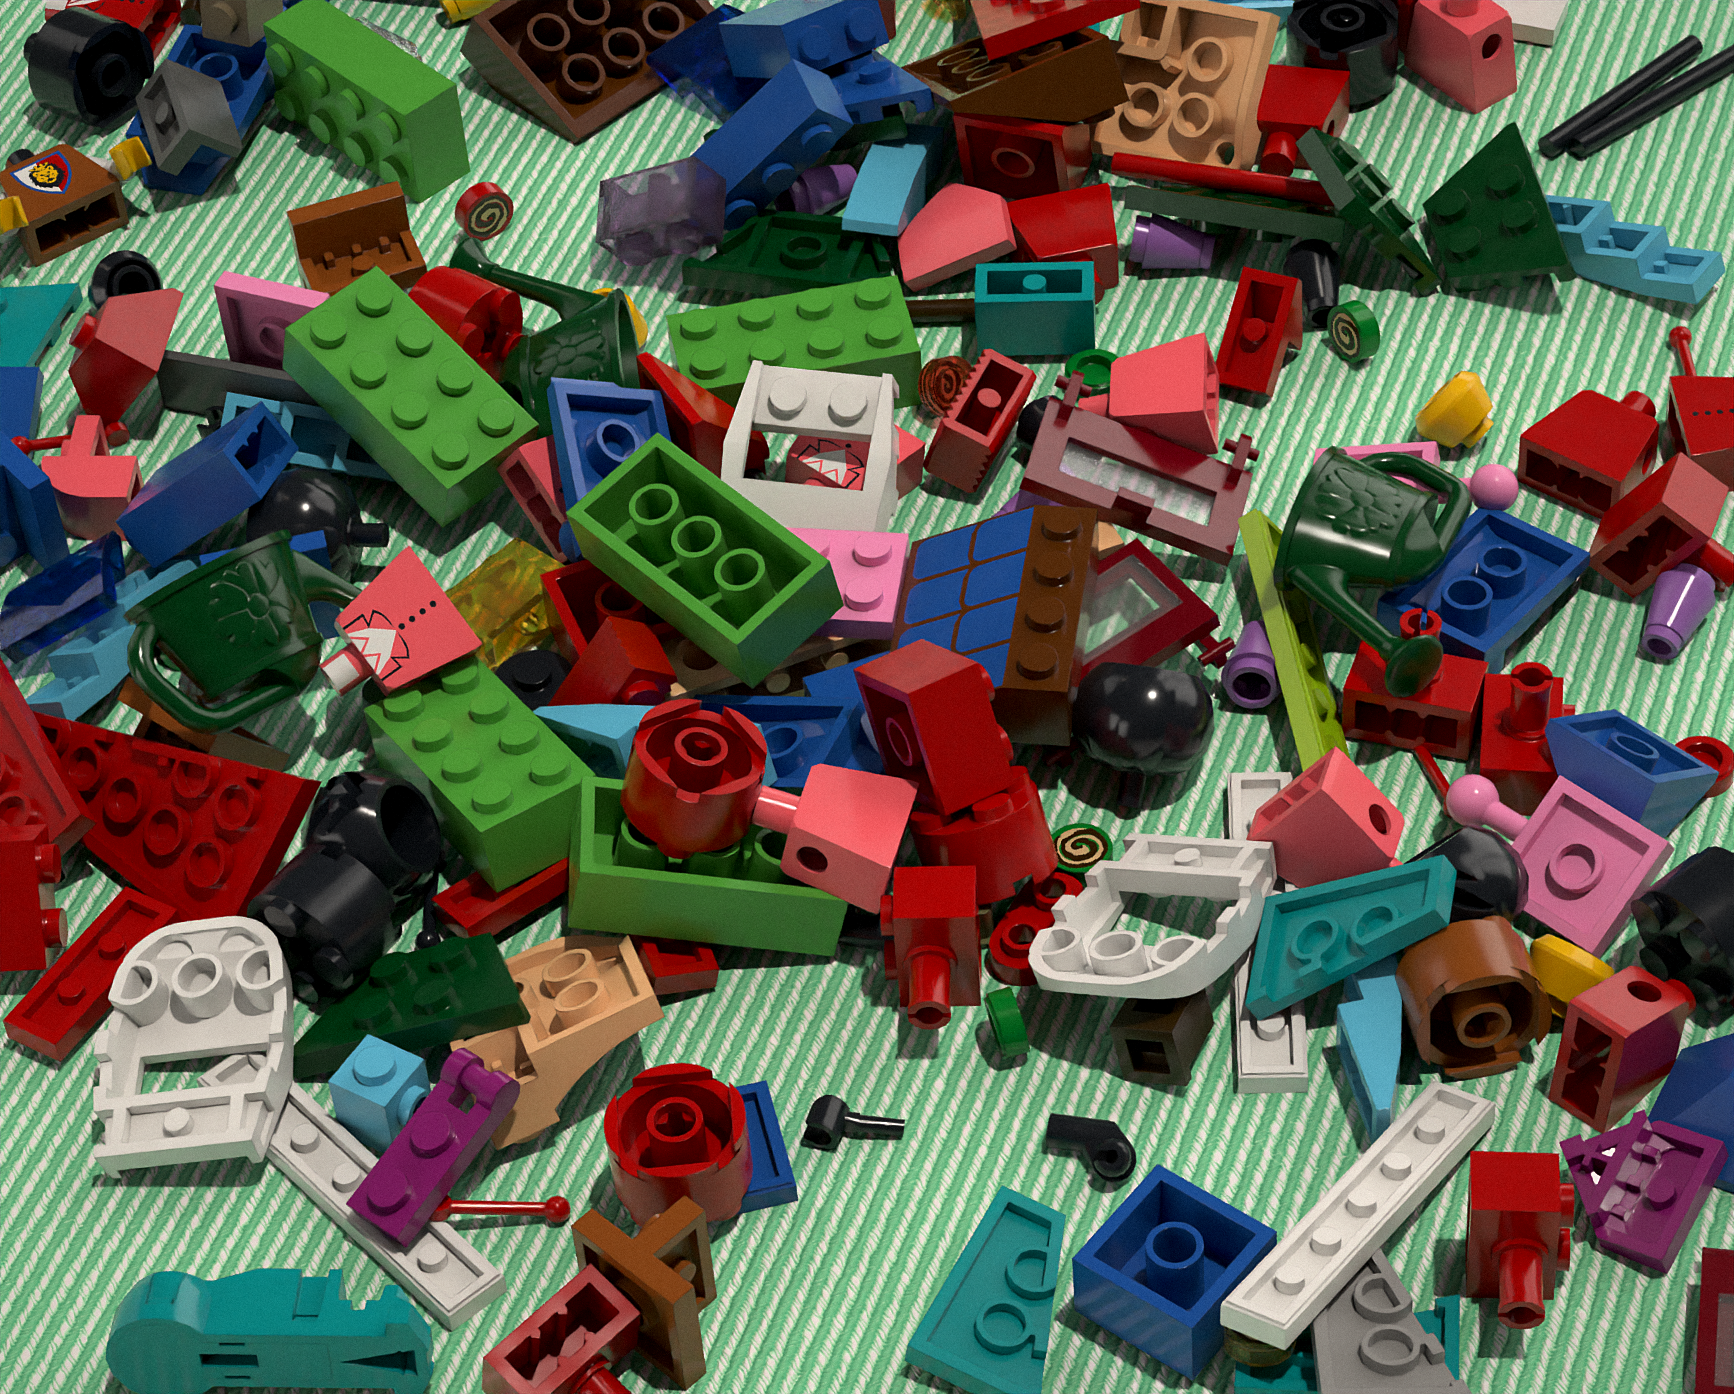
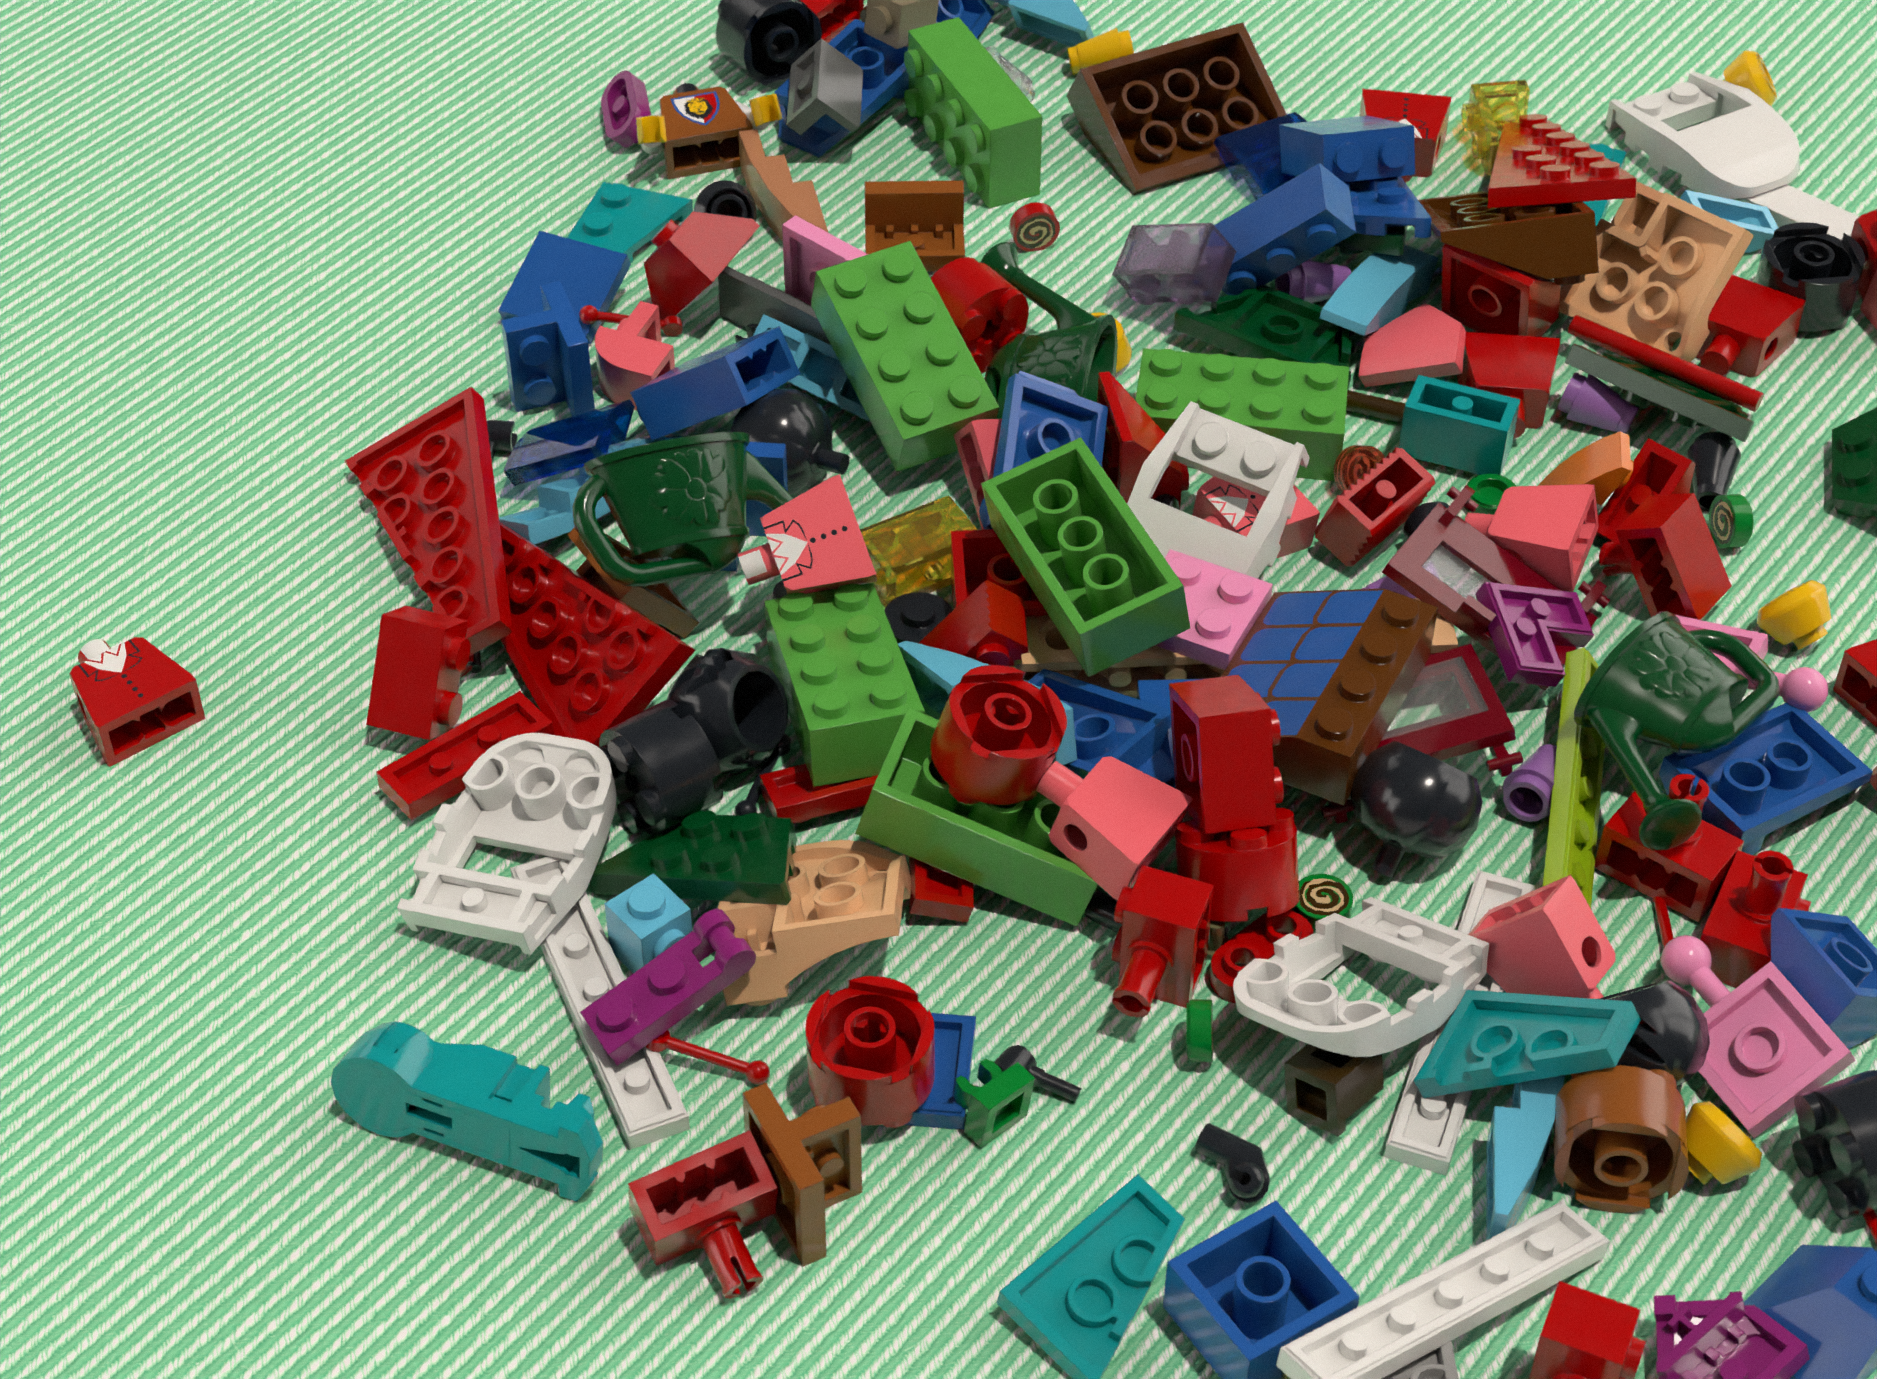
camera: 15 degrees right, 0 degrees up
(183, 258) = (773, 187): none -> nougat slope
(825, 1162) = (996, 1104): none -> green tile
(1192, 502) = (1529, 626): none -> magenta tile
(1202, 307) = (1600, 464): none -> orange slope
(1308, 386) = (1669, 555): none -> red brick
(1362, 199) = (1778, 411): dark green wing -> none
(1618, 1045) = (1742, 1222): red torso -> none

